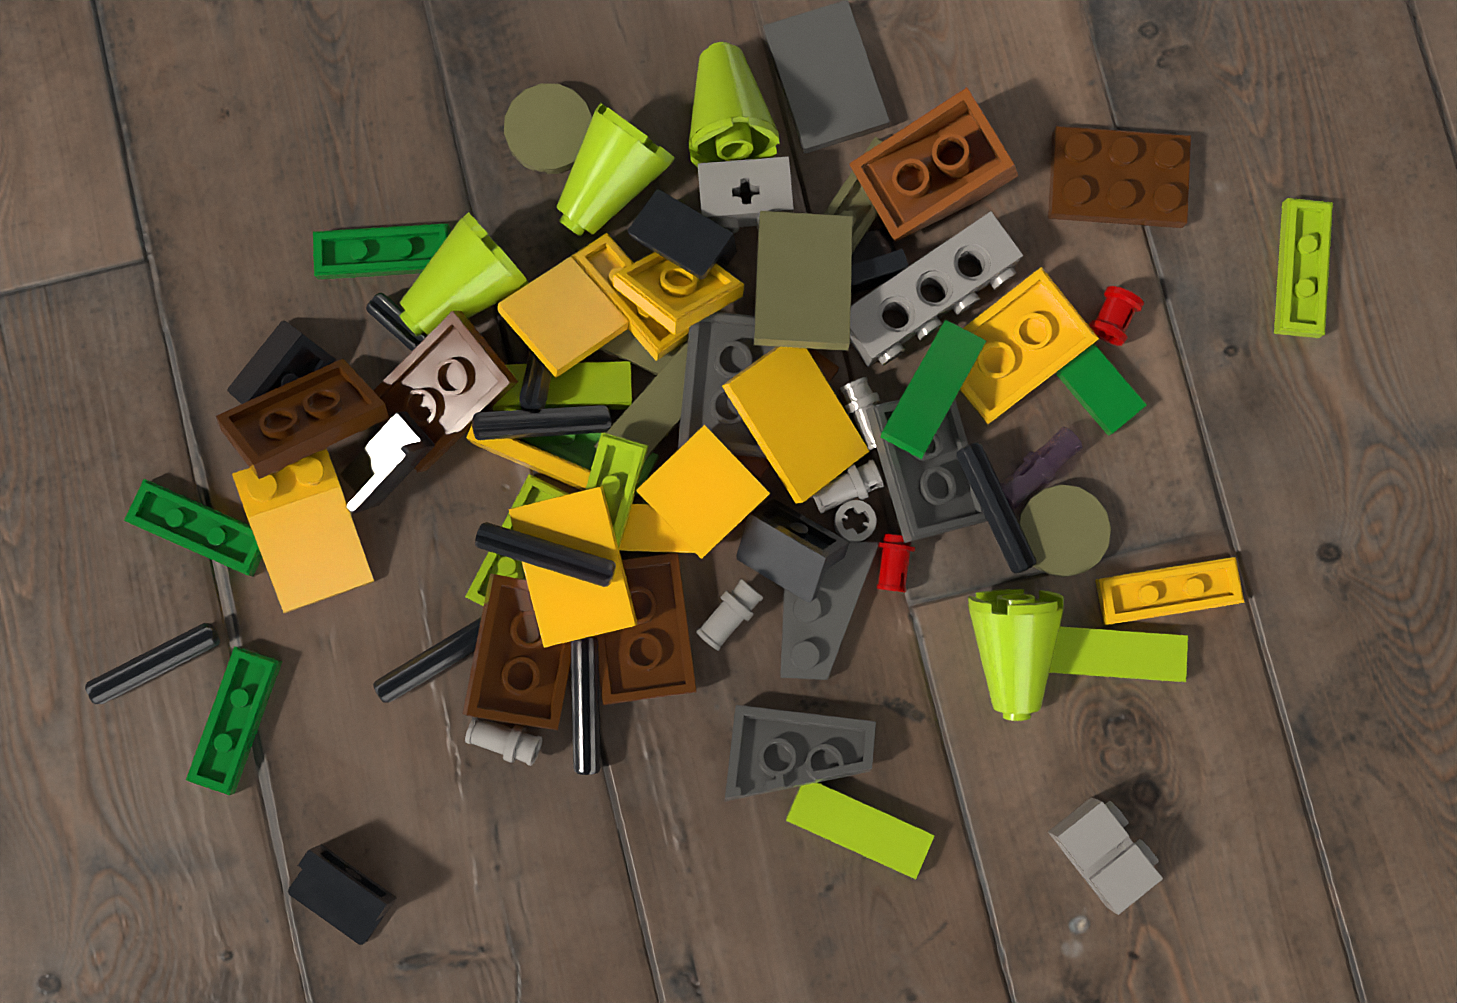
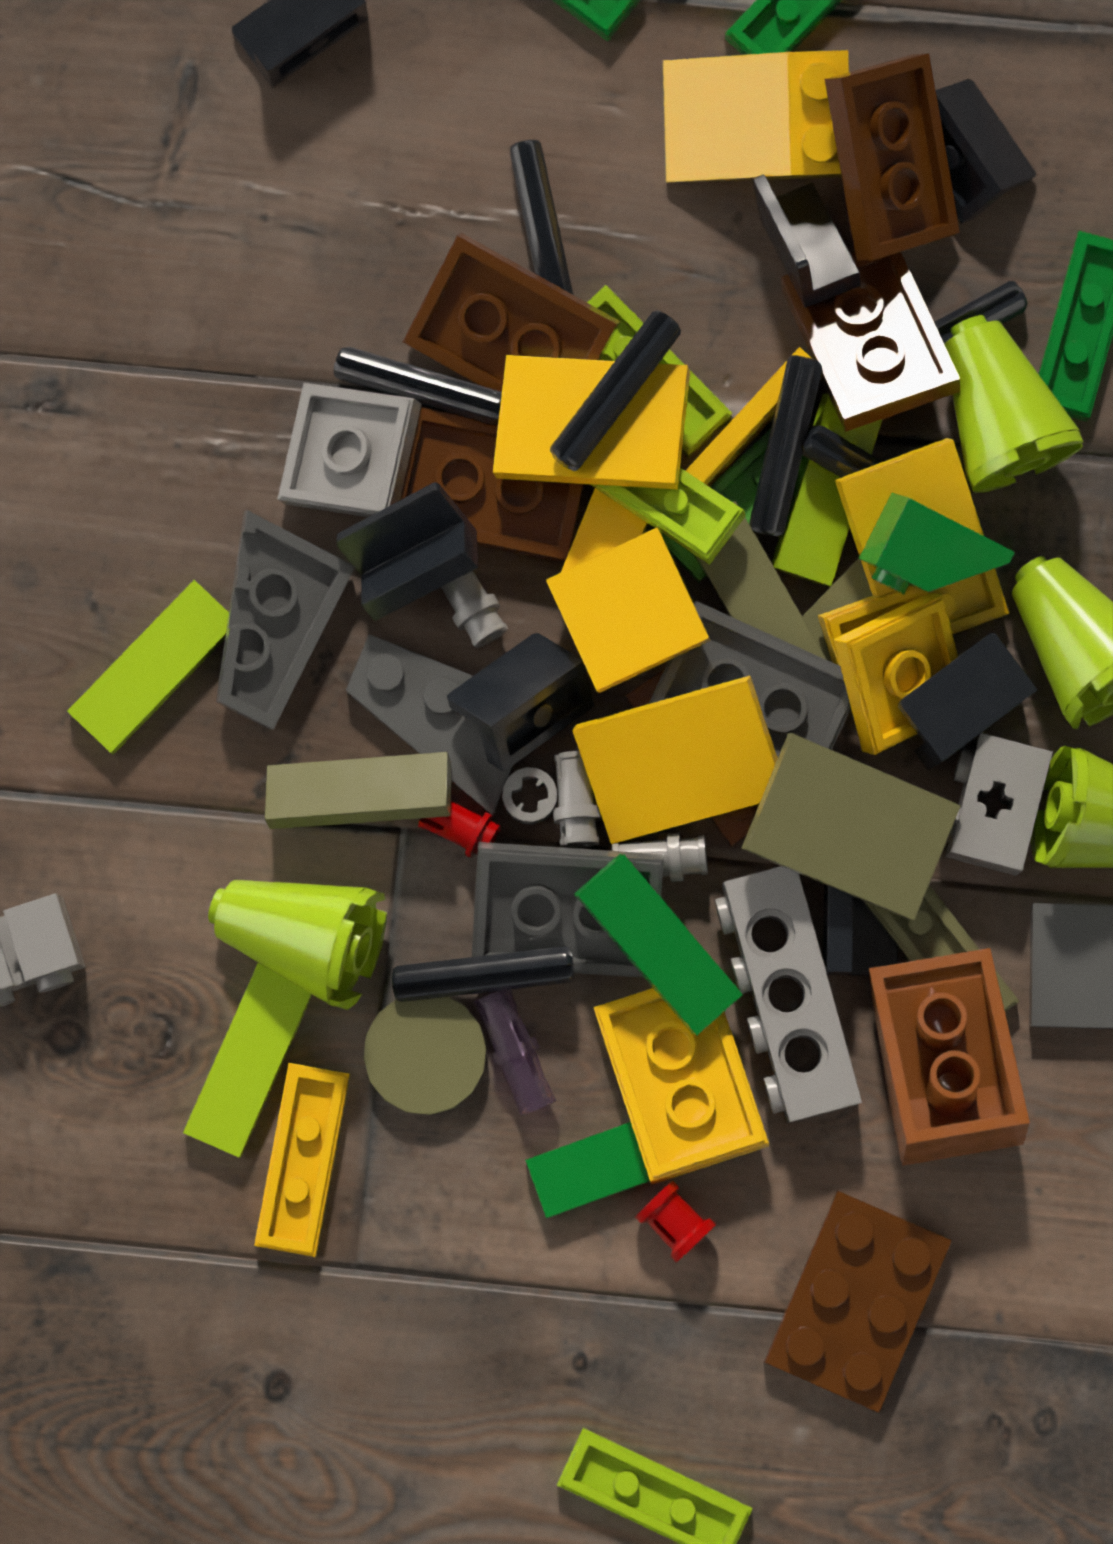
camera: 110 degrees right, 0 degrees up
(508, 741) = (407, 282): light grey pin -> none
(585, 293) = (926, 548): none -> green slope
(652, 739) = (348, 450): none -> light grey tile
(712, 666) = (410, 549): none -> black panel
(898, 643) = (358, 790): none -> olive tile

